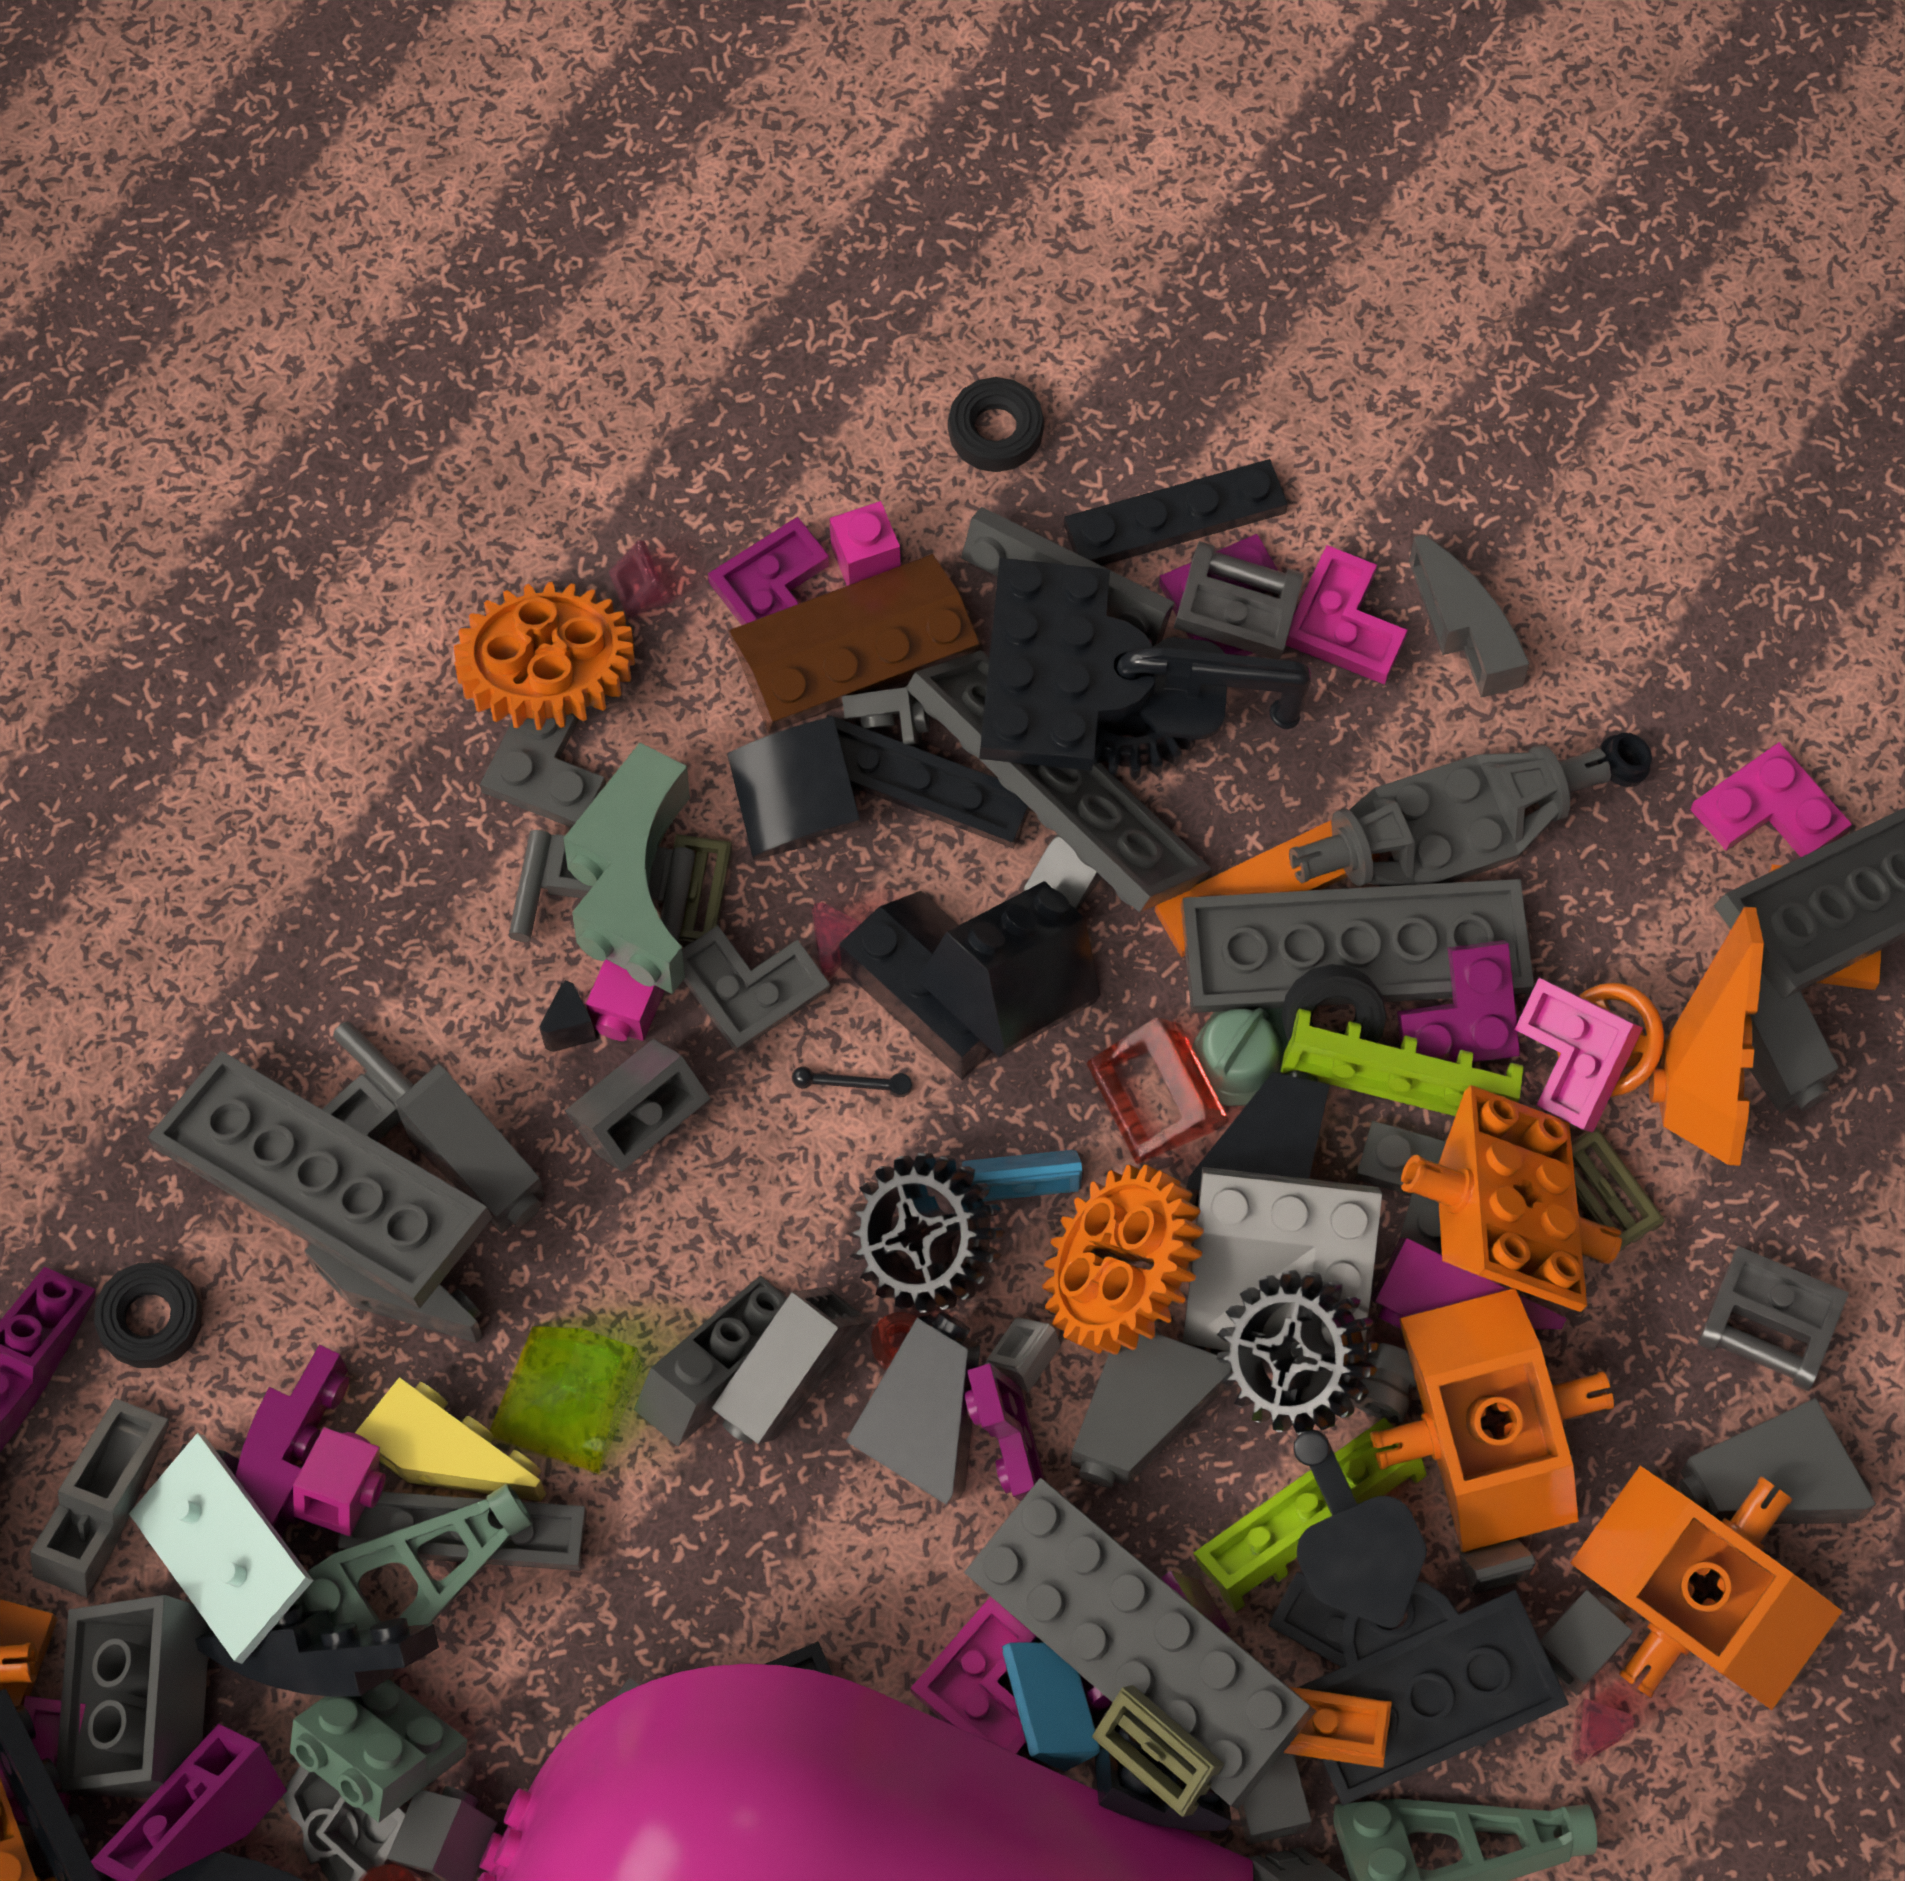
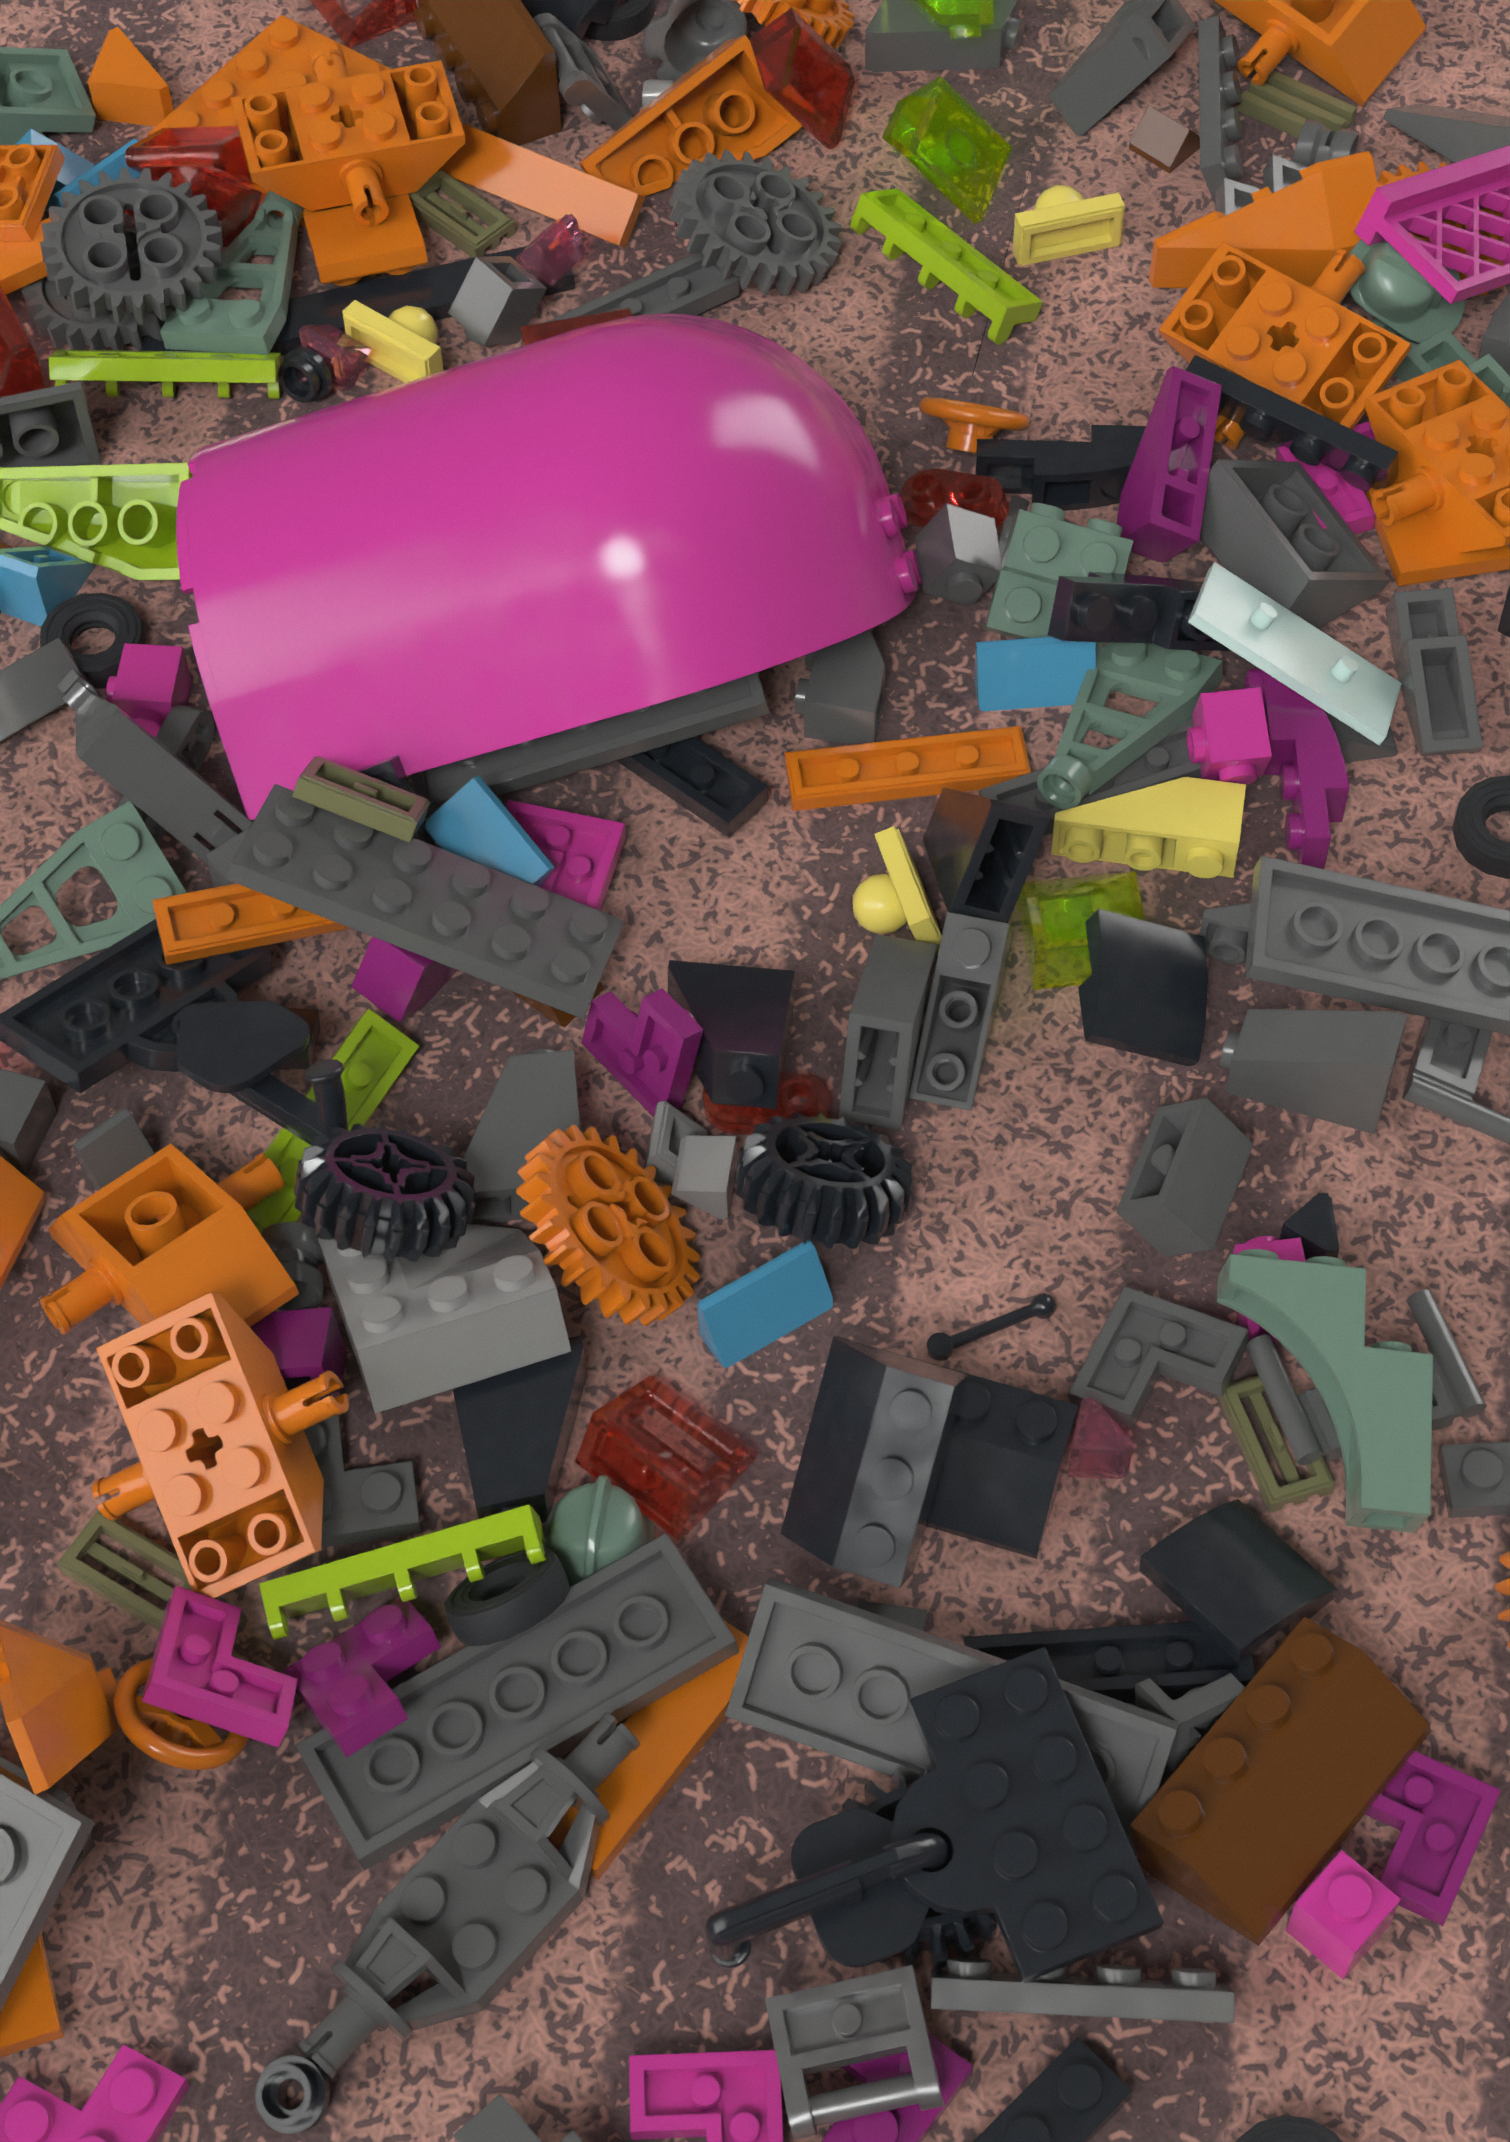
camera: 155 degrees right, 10 degrees down
(458, 1684) = (1030, 672): none -> dark azure slope
(562, 1287) = (1144, 988): none -> black slope
(605, 1634) = (904, 767): none -> orange tile
(624, 1468) = (982, 852): none -> black slope
(710, 1490) = (891, 900): none -> light yellow tile
(1011, 1303) = (706, 1173): none -> light grey slope

